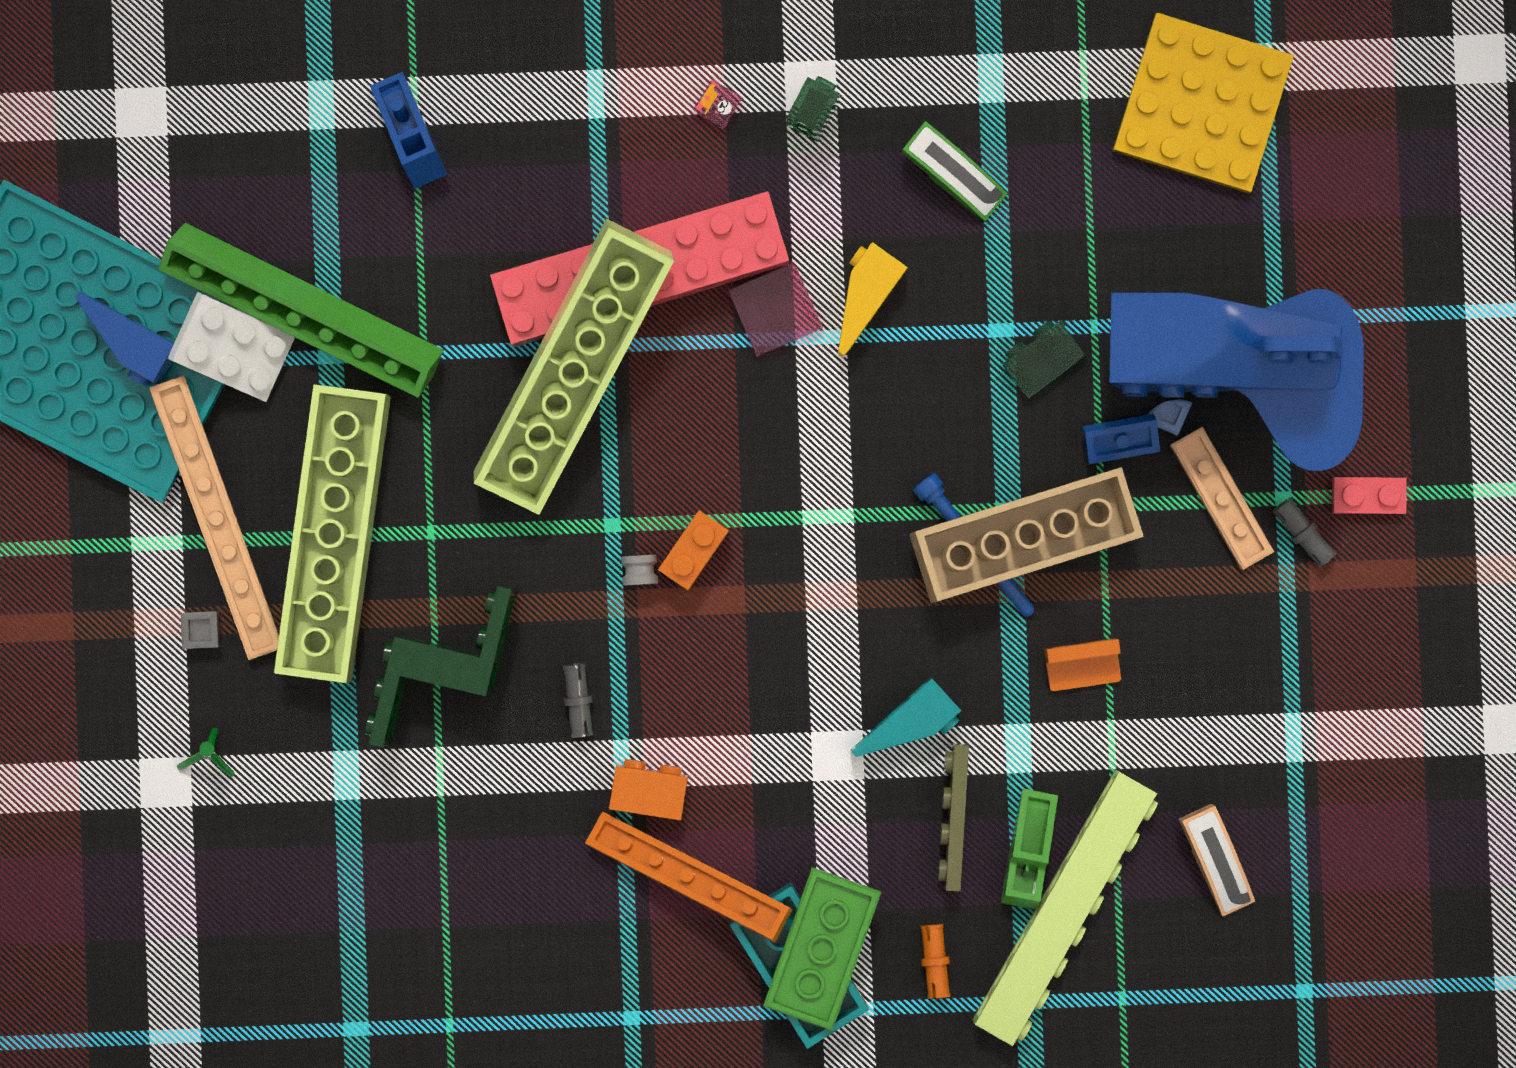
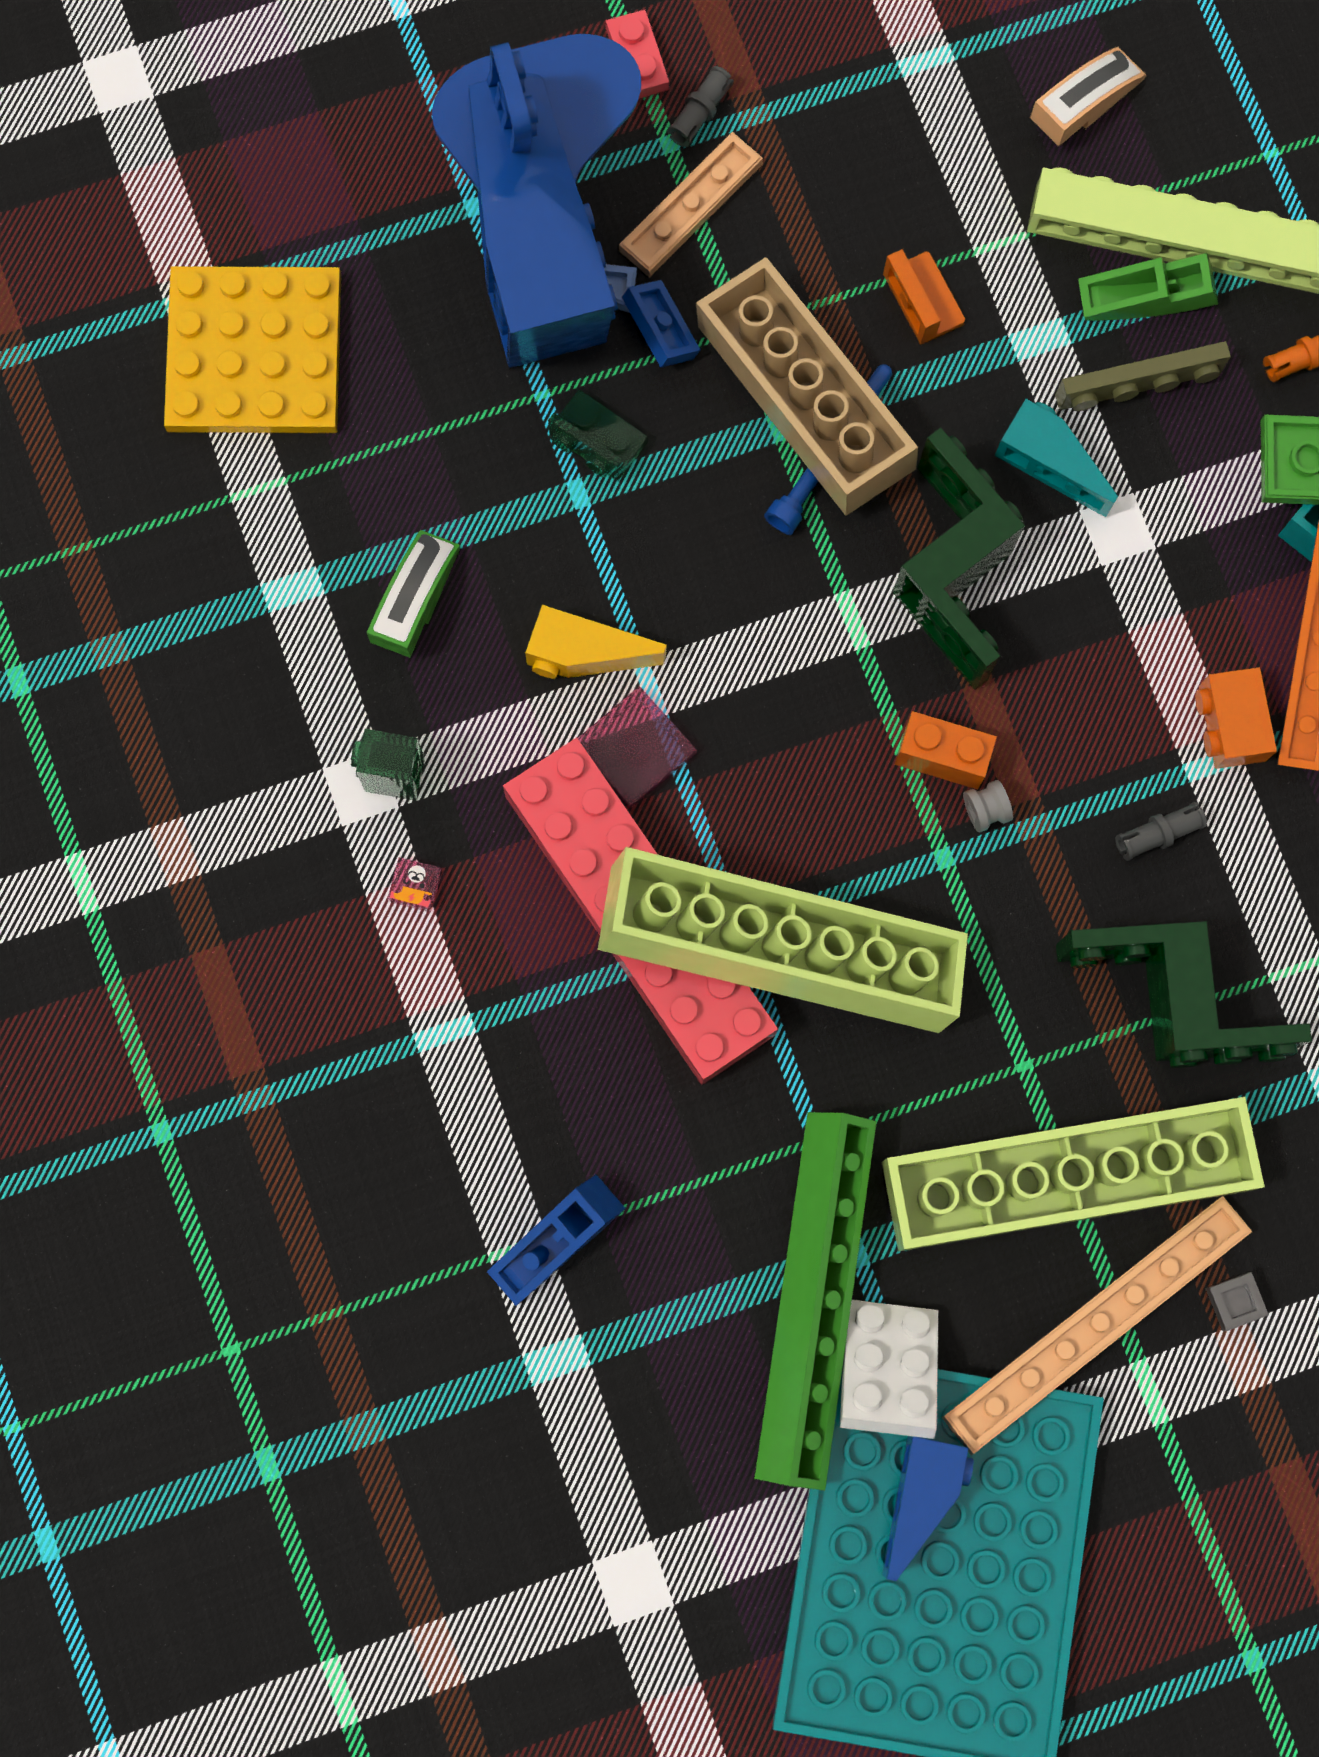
camera: 110 degrees left, 10 degrees down
(845, 612) = (959, 557): none -> dark green bracket

